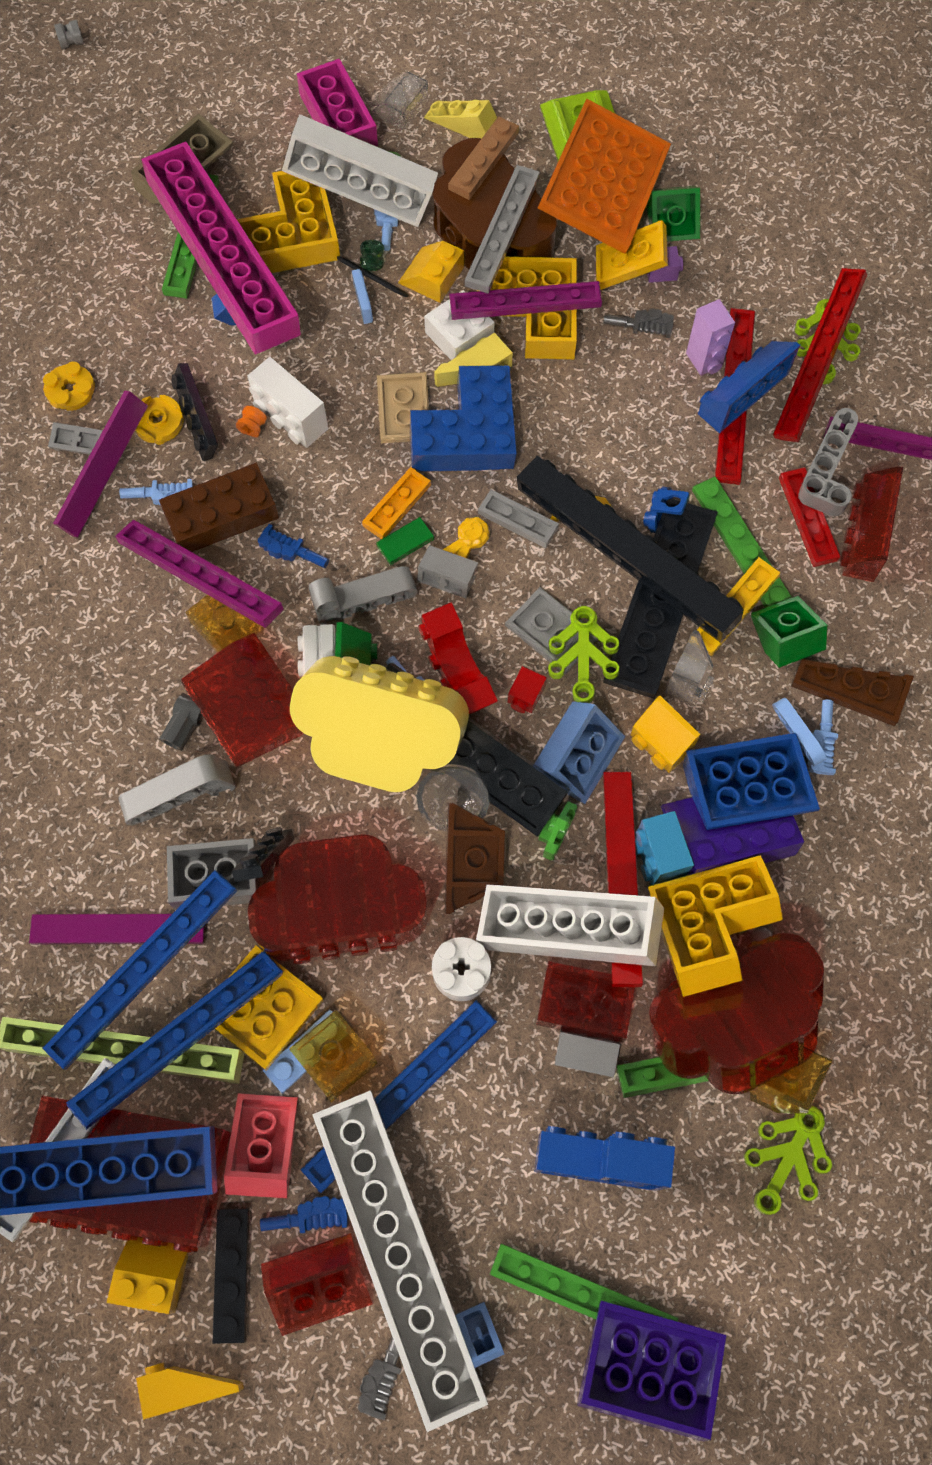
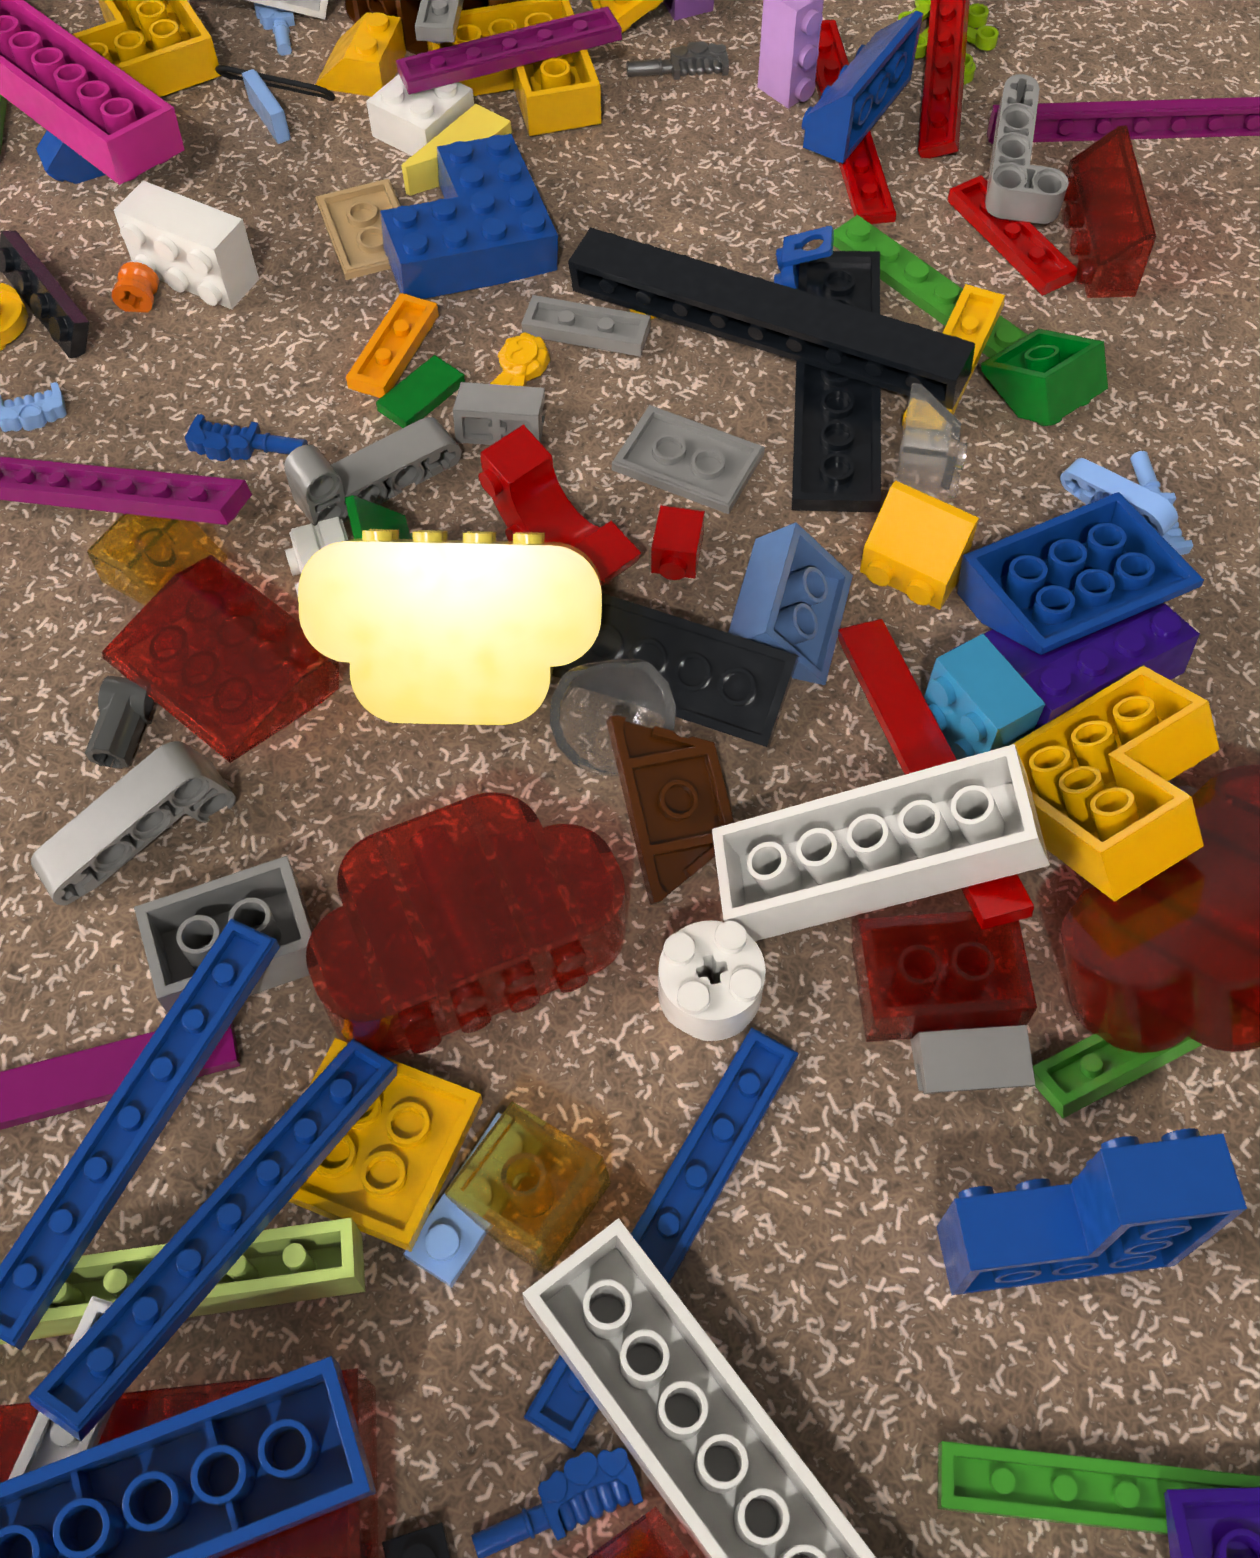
camera: 15 degrees left, 10 degrees down
(219, 508) = (113, 404): reddish brown brick -> none
(261, 1146) = (437, 1396): coral slope -> none
(263, 854) = (306, 869): black plate -> none
(371, 255) = (267, 55): clear green wheel -> none
(556, 830) = (794, 728): bright green plate -> none
(583, 650) = (736, 428): lime plant -> none
(862, 691) = (1188, 431): reddish brown wing -> none

